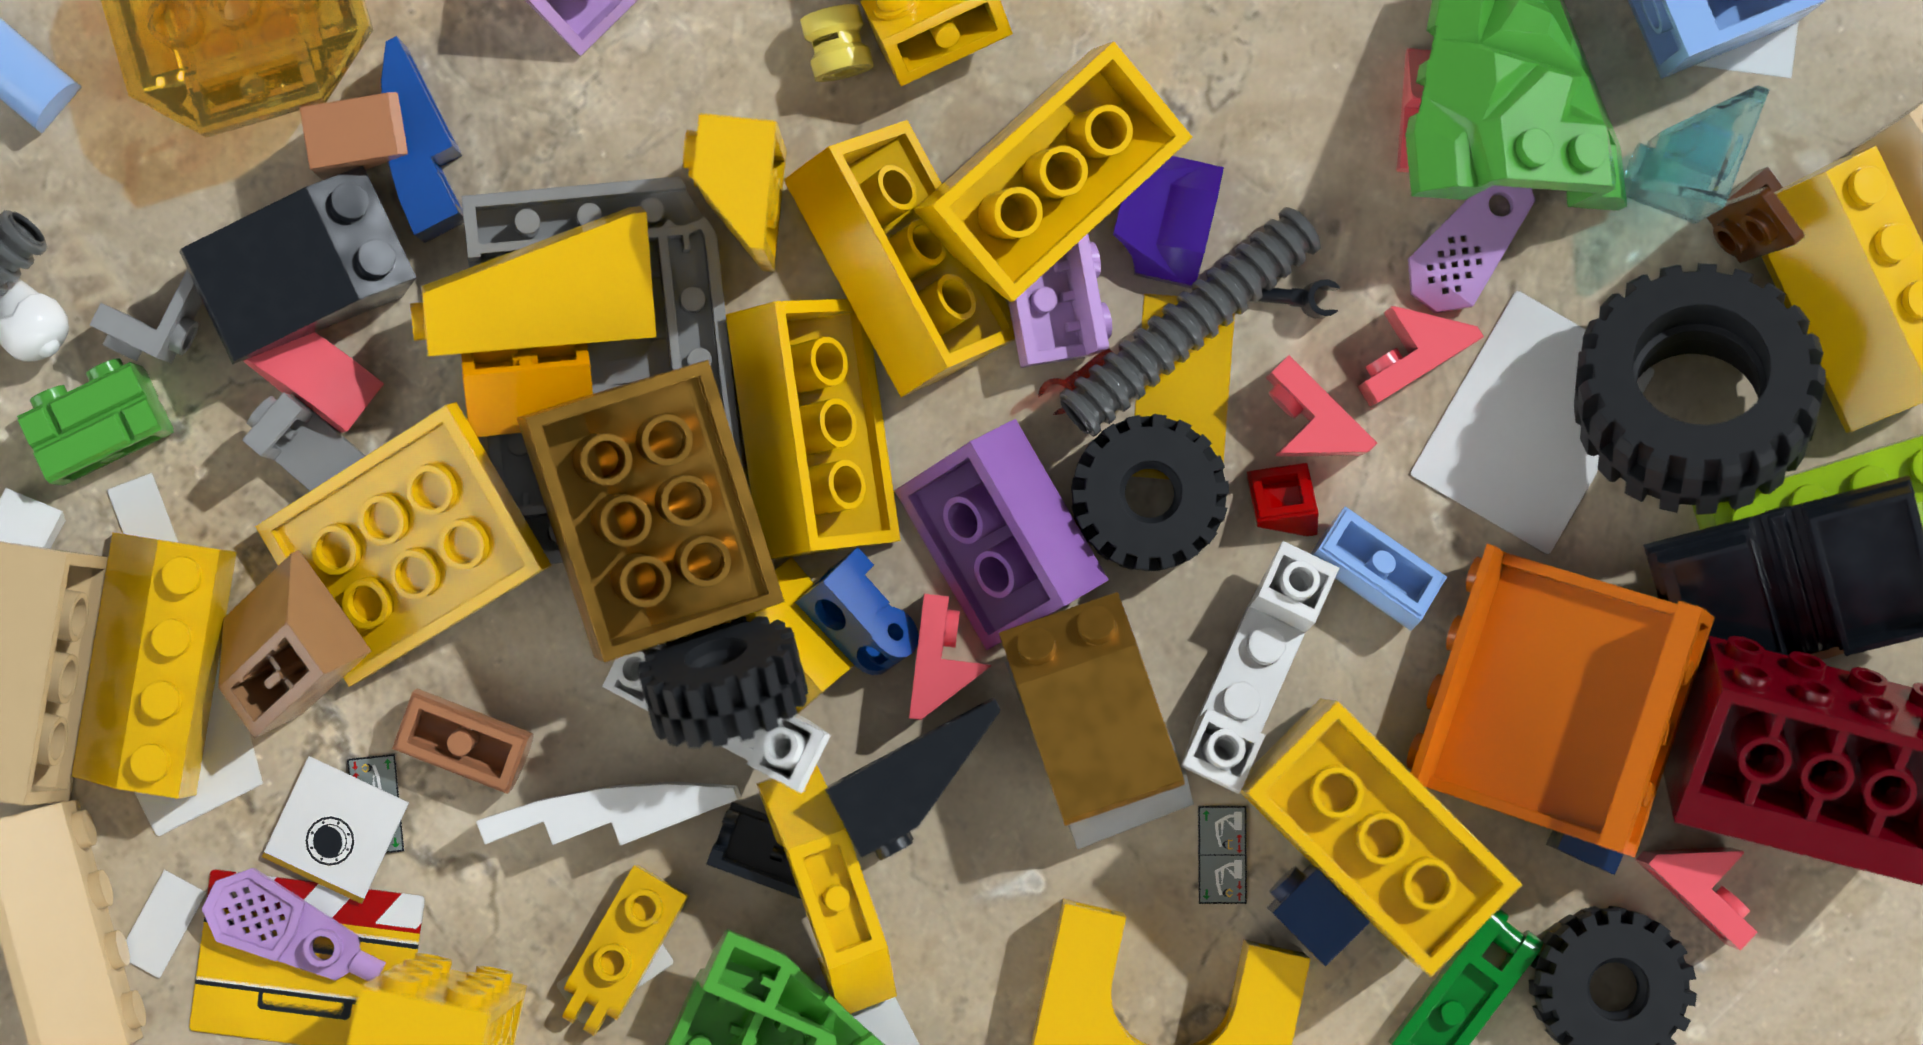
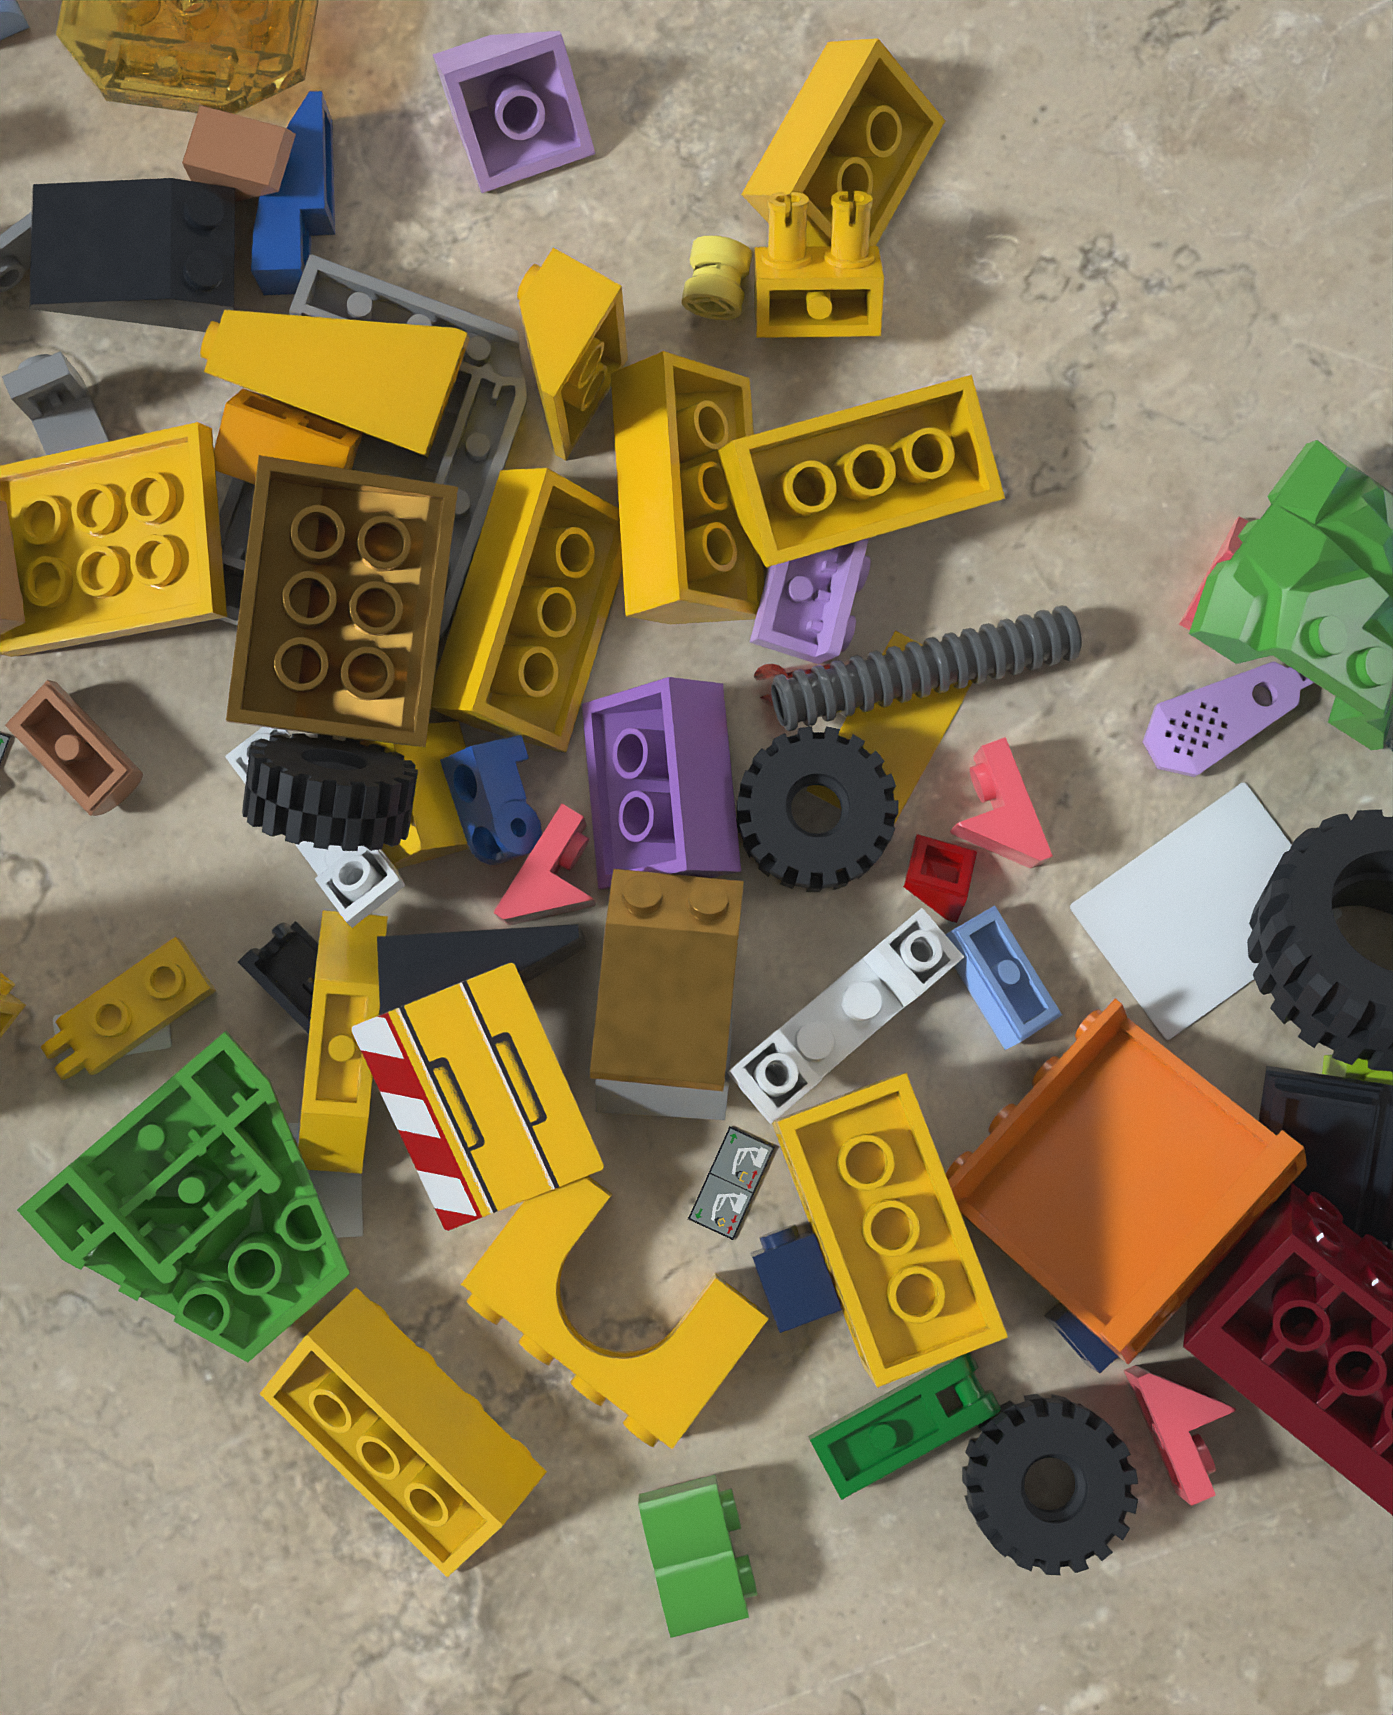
camera: 25 degrees right, 5 degrees down
(320, 378) = (106, 363): coral slope -> none
(631, 809) = (193, 882): white slope -> none
(975, 886) = (478, 1096): none -> yellow sticker
(1170, 220) = (947, 569): dark purple slope -> none
(1302, 297) = (1040, 697): black hand -> none
(1429, 343) = (1141, 791): coral slope -> none

